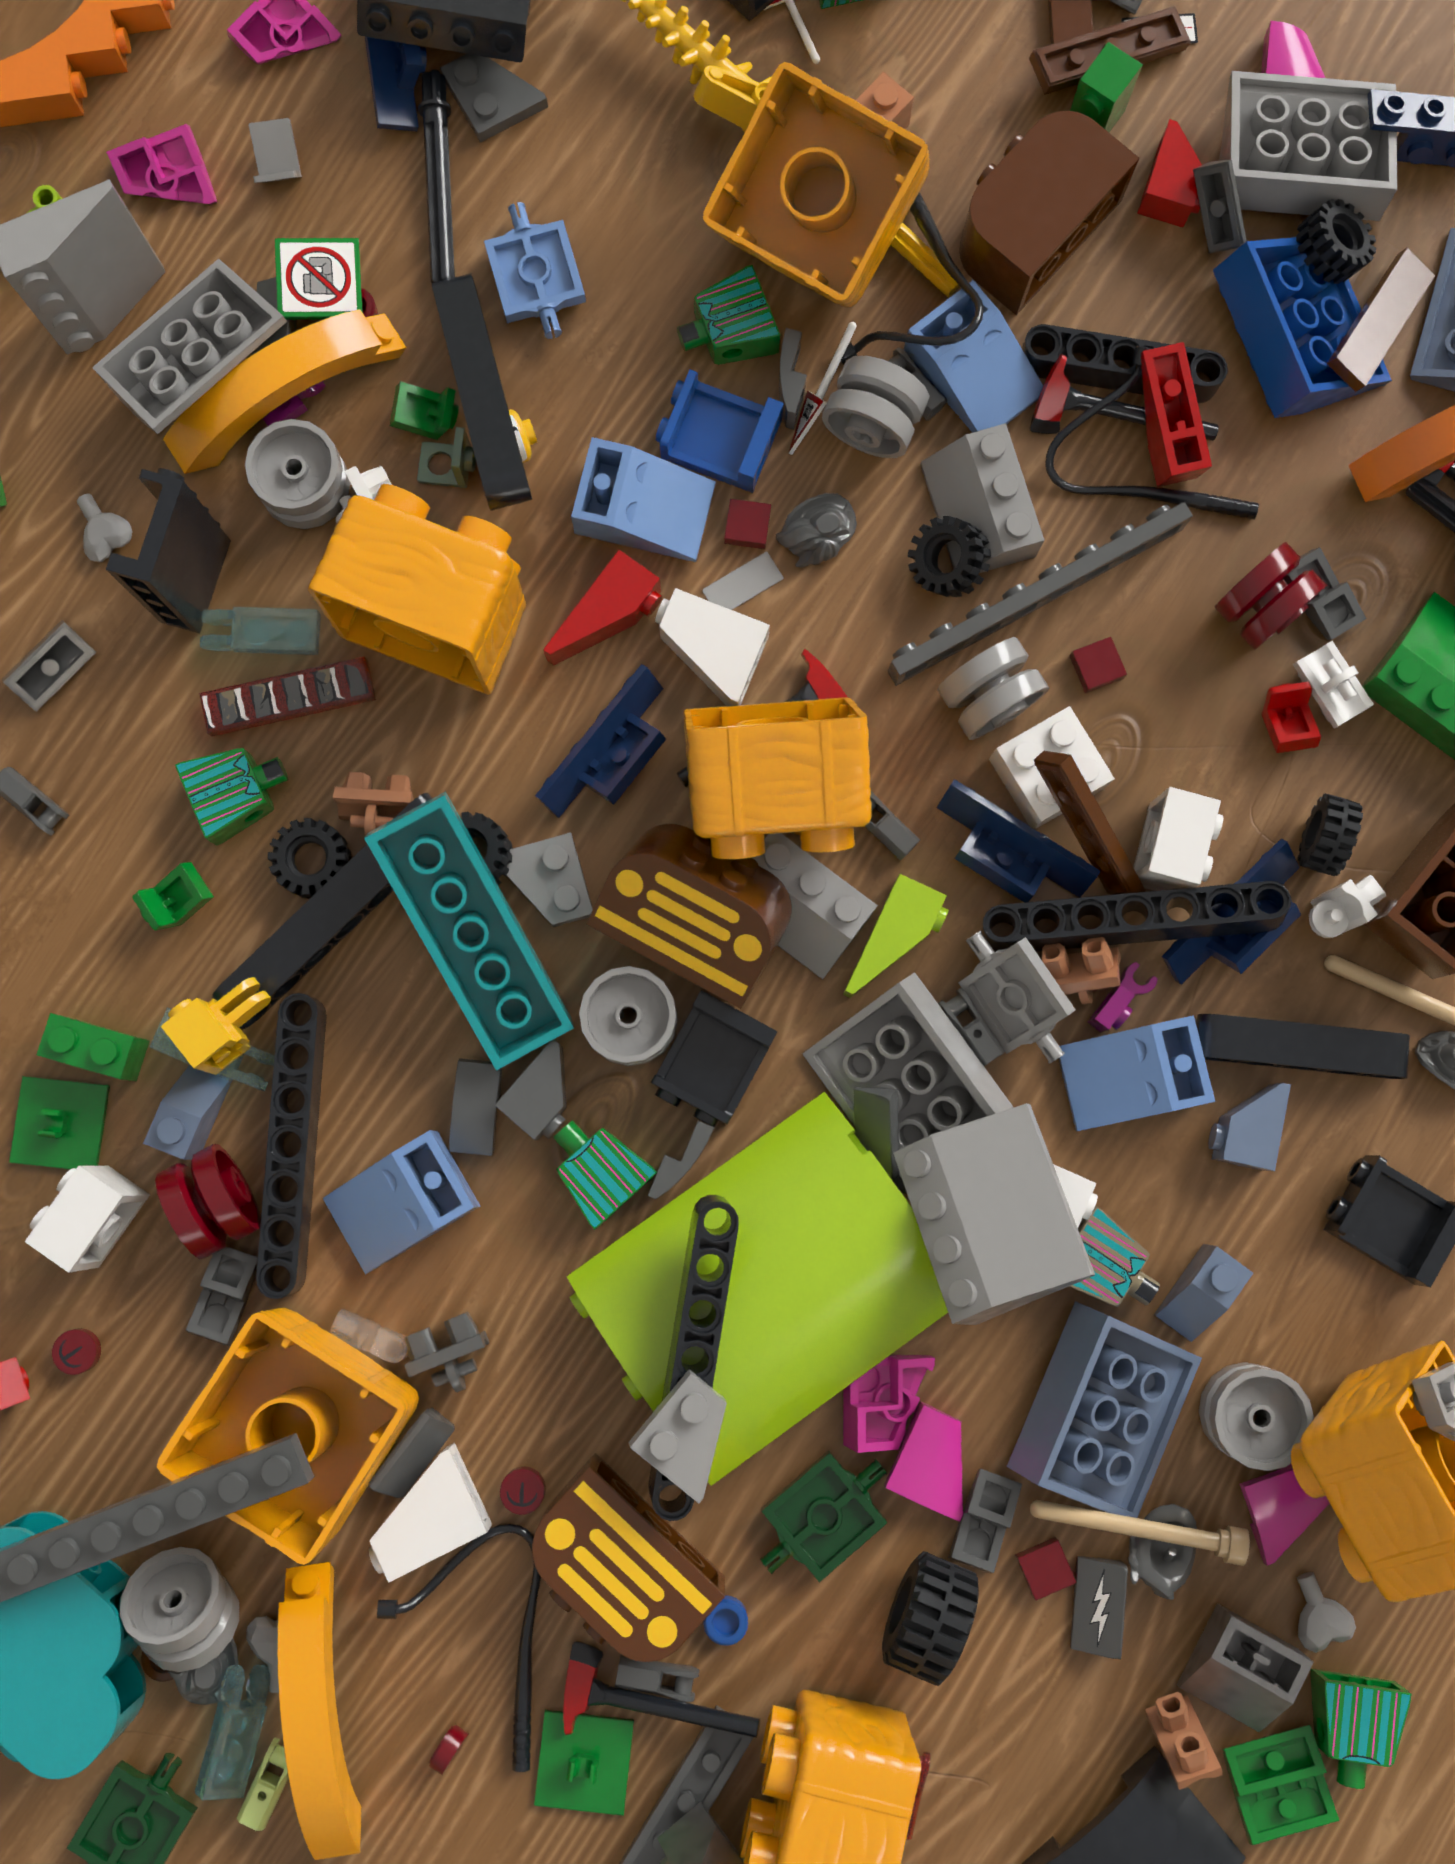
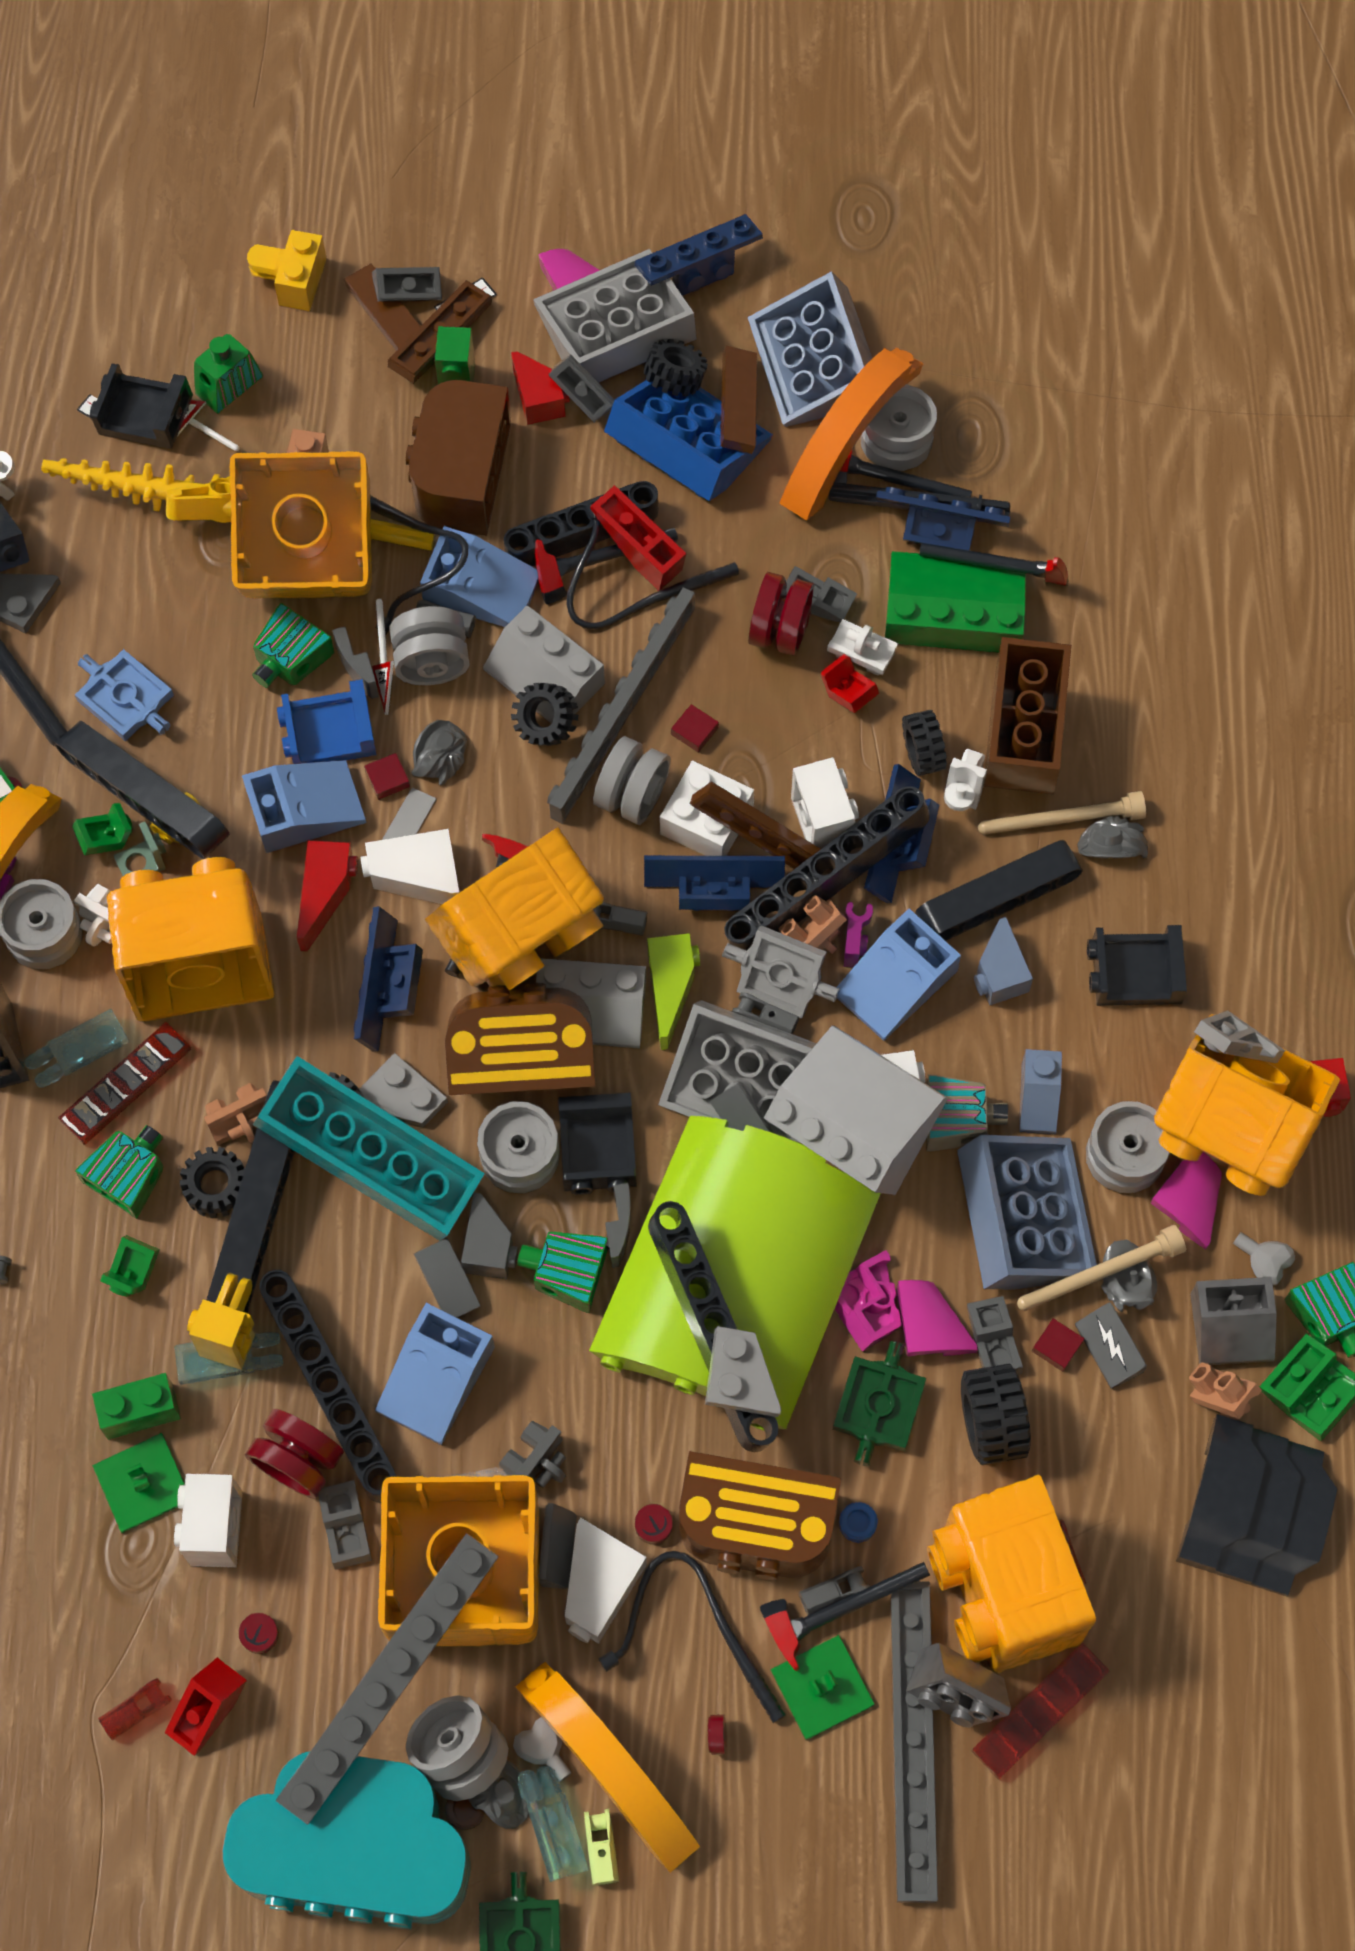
camera: 30 degrees left, 15 degrees down
(187, 1114) = (237, 1412): sand blue slope -> none

